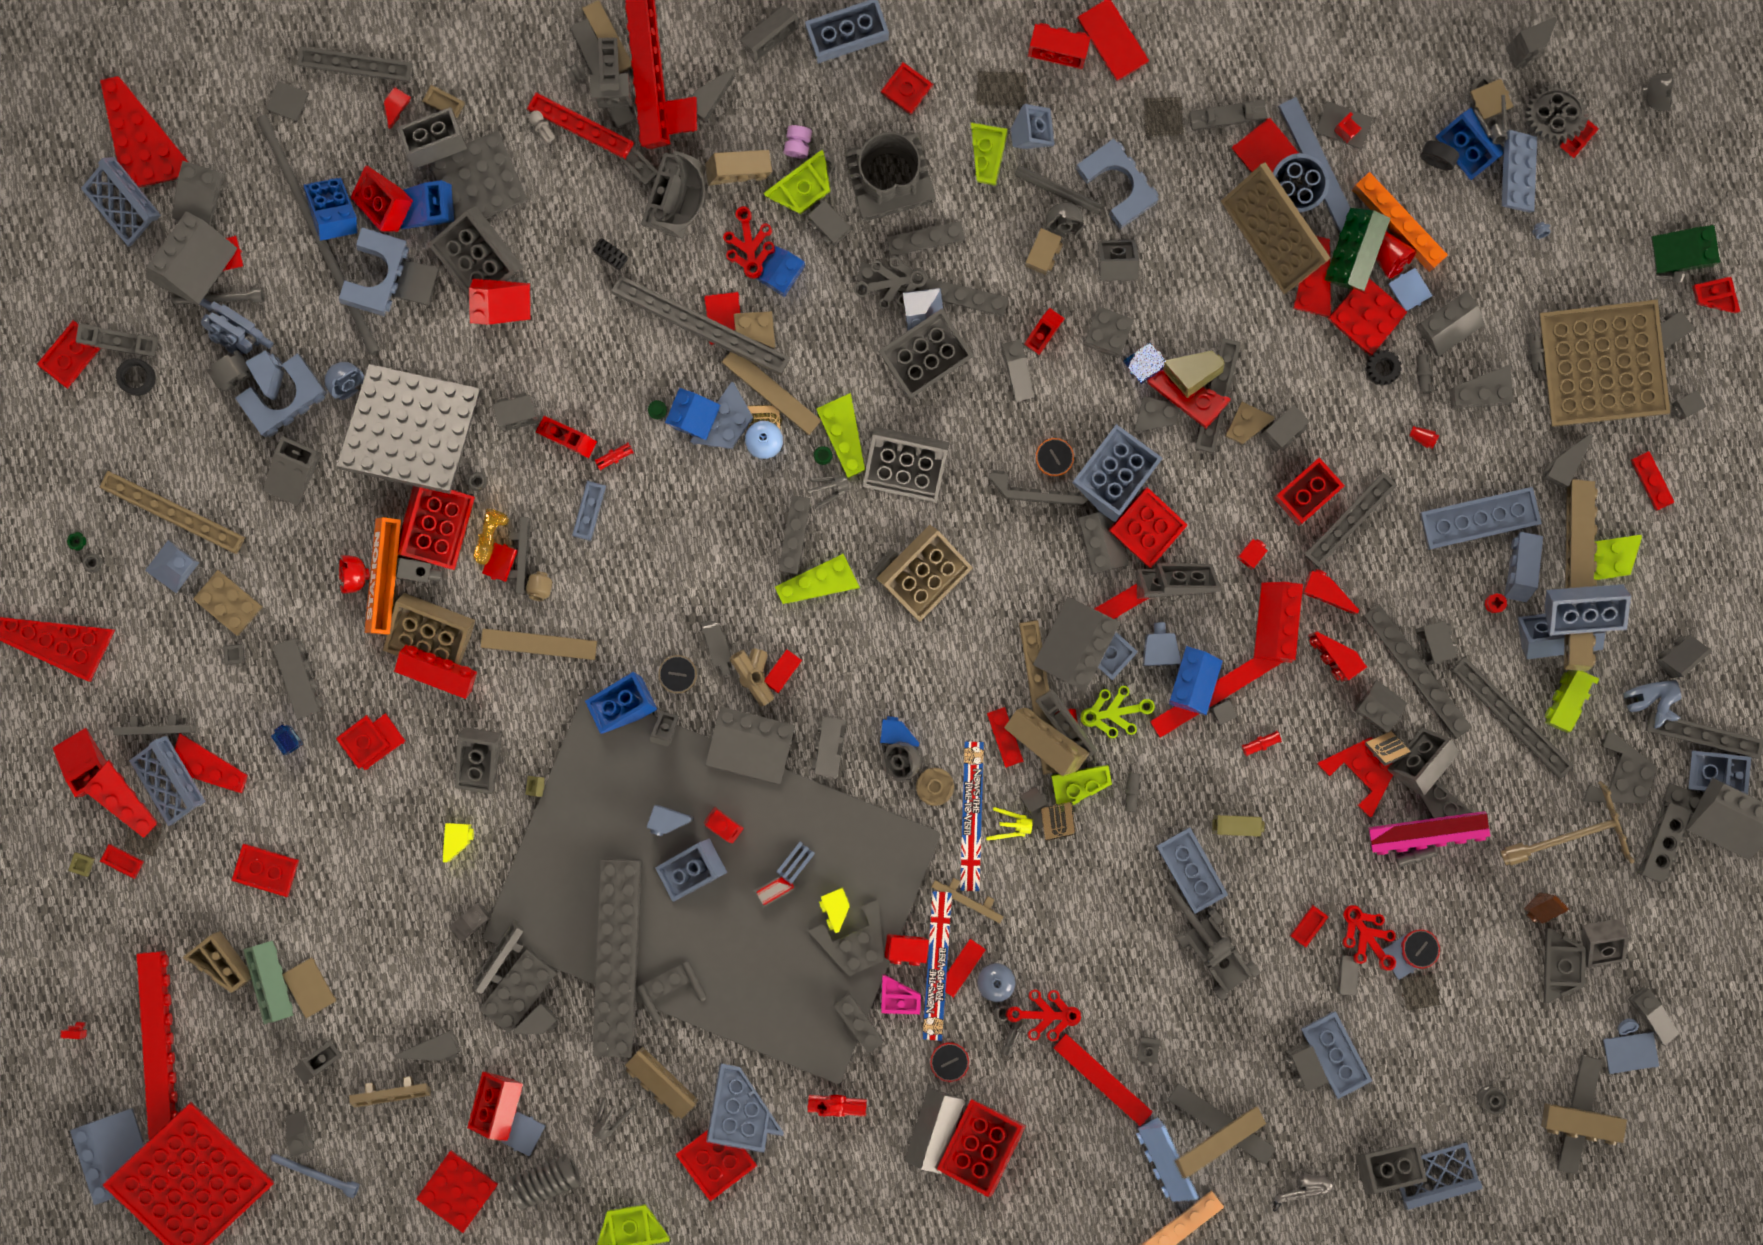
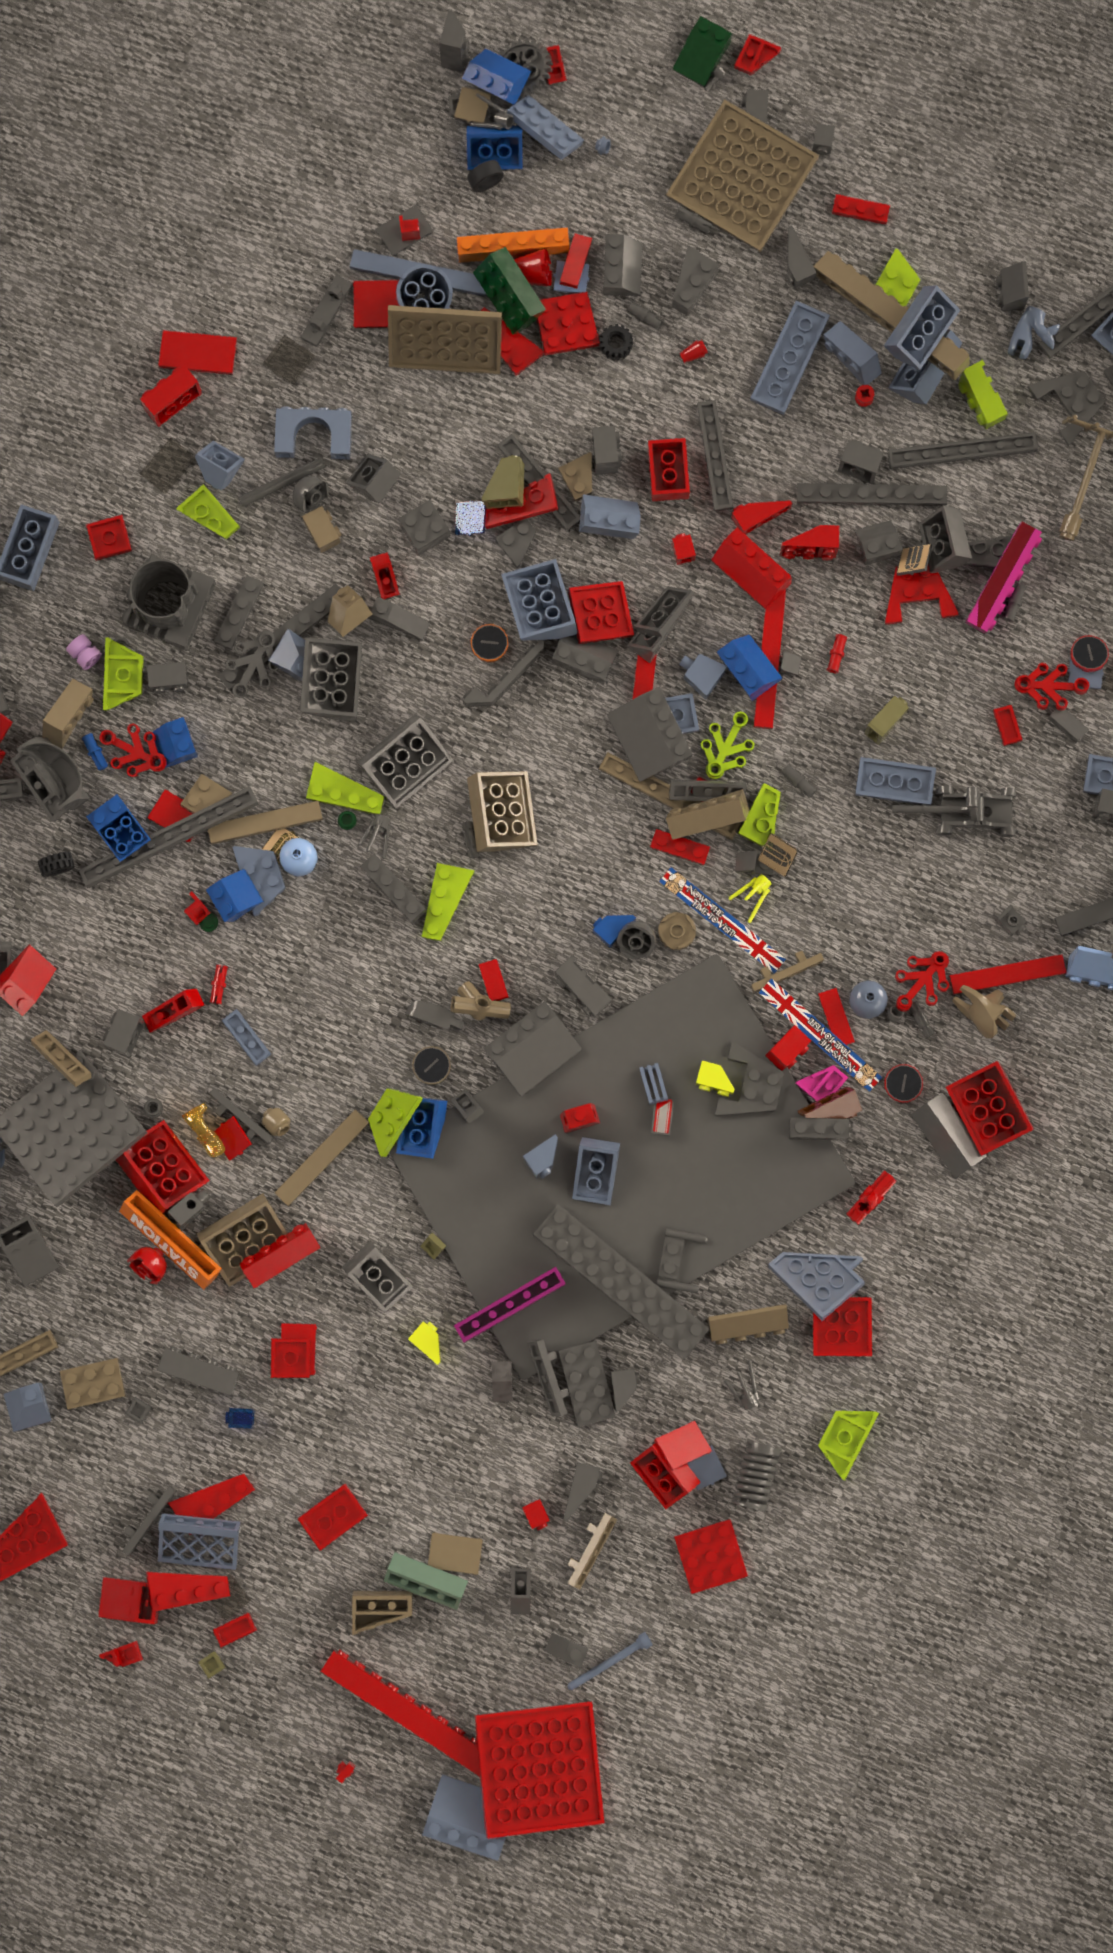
camera: 50 degrees left, 5 degrees down
(38, 790) = (123, 1655): none -> red slope
(385, 1029) = (536, 1514): none -> red brick
(458, 379) = (61, 1058): none -> dark tan hinge
(525, 1104) = (683, 1445): none -> piece
(531, 883) = (509, 1305): none -> magenta brick
(608, 675) = (391, 1117): none -> lime wing
(659, 393) = (197, 910): none -> red panel
(677, 280) = (118, 828): none -> blue slope
(725, 213) = (95, 751): none -> blue axle
(888, 1022) = (840, 1104): none -> slope
(990, 324) = (347, 611): none -> dark tan slope
(1057, 1085) = (985, 1010): none -> dark tan piece
(1233, 474) = (609, 517): none -> sand blue slope
(1426, 283) = (575, 261): none -> red tile
(1532, 99) = (497, 75): none -> blue slope

